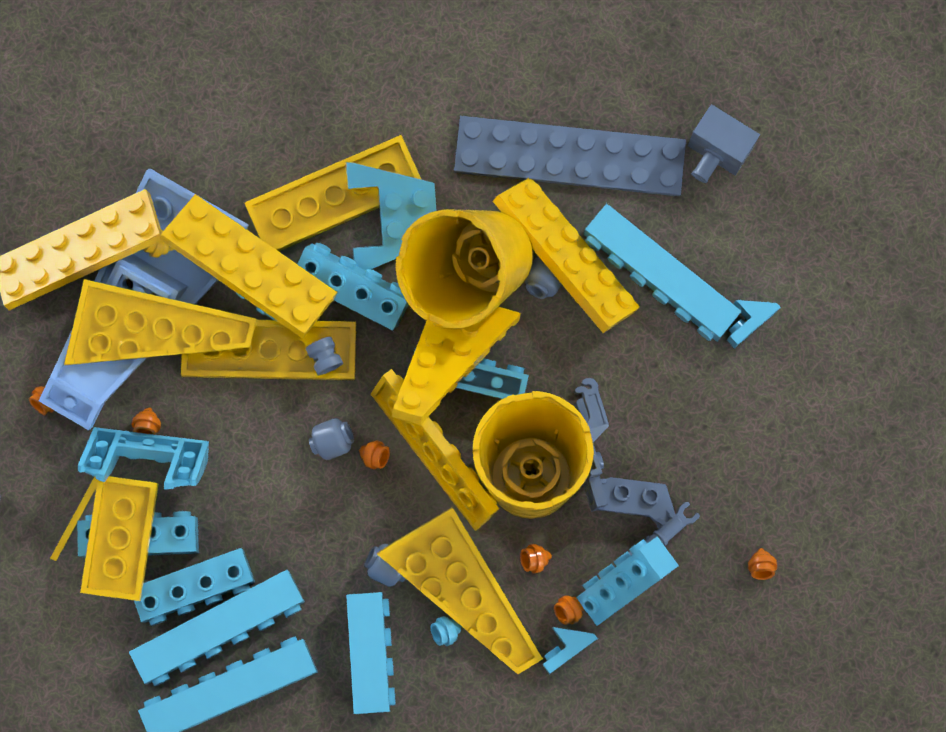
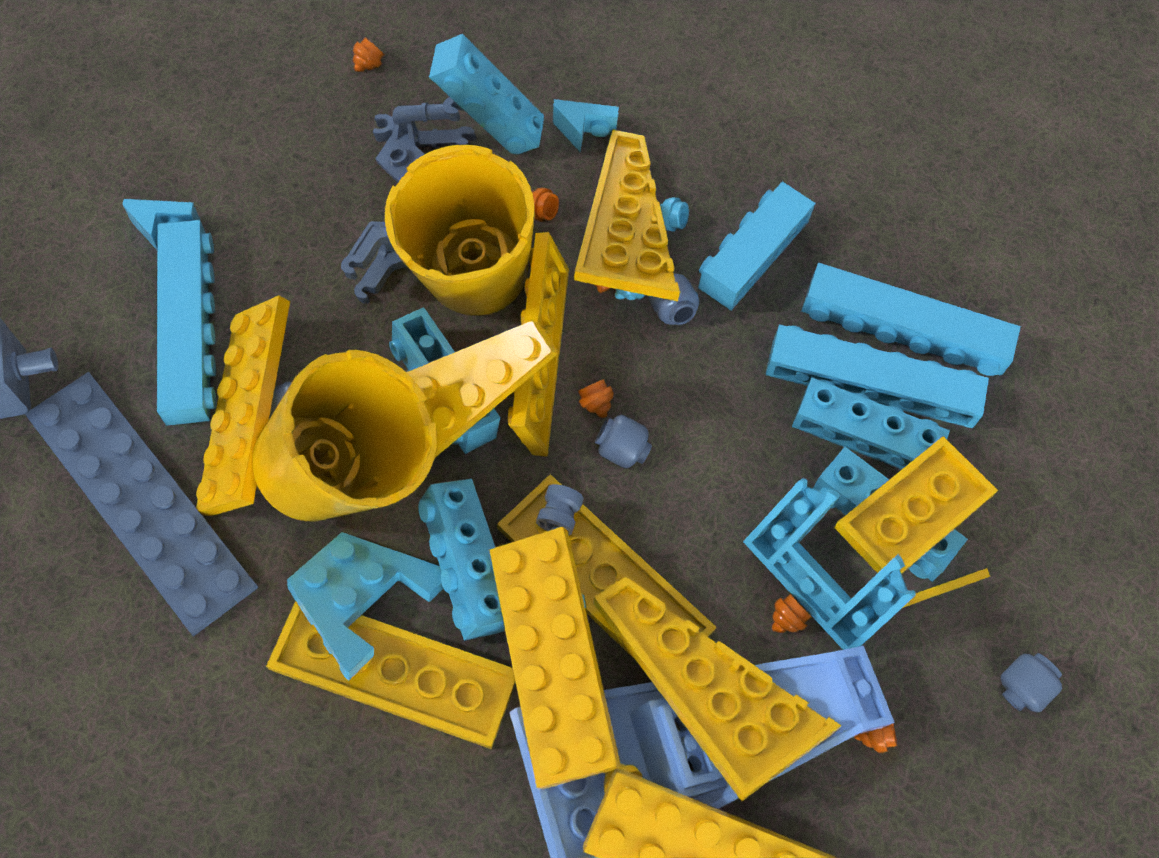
camera: 140 degrees left, 15 degrees down
(568, 610) = (553, 147): orange plate -> none

